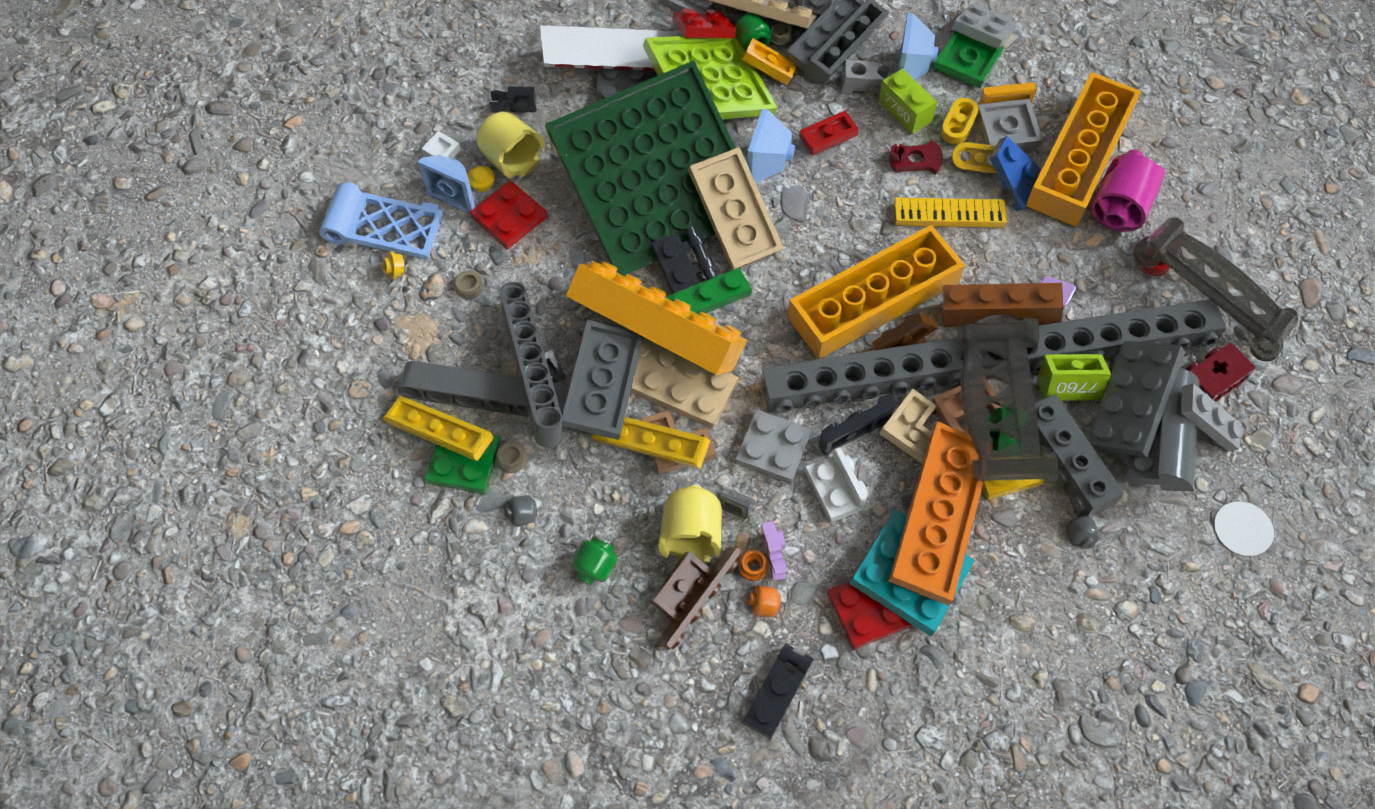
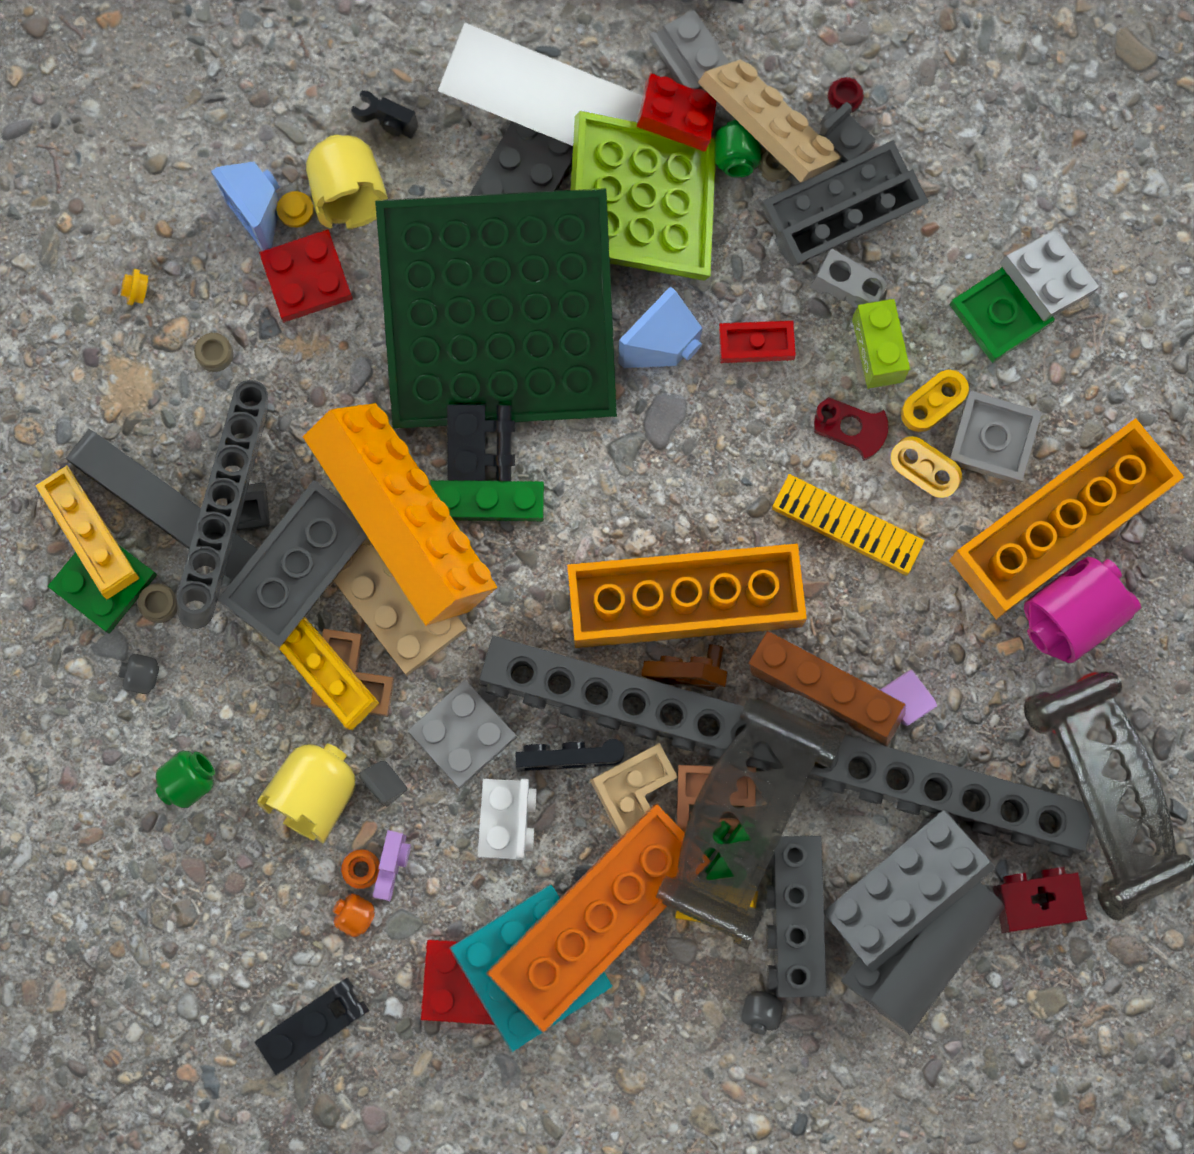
camera: 25 degrees right, 15 degrees up
(345, 215) = (113, 184): light blue piece -> none
(441, 145) = (265, 145): white plate -> none
(687, 590) = (269, 865): bracket -> none
(735, 208) = (572, 405): tan plate -> none
(769, 61) = (734, 203): light orange plate -> none
(916, 48) = (931, 275): light blue slope -> none
(1008, 93) = (1017, 392): light orange plate -> none
(1015, 170) = (959, 509): blue wing -> none
(1073, 376) = (858, 822): lime brick -> none
(1211, 417) = (986, 957): light grey plate -> none
(1244, 528) = (955, 1100): white sticker -> none

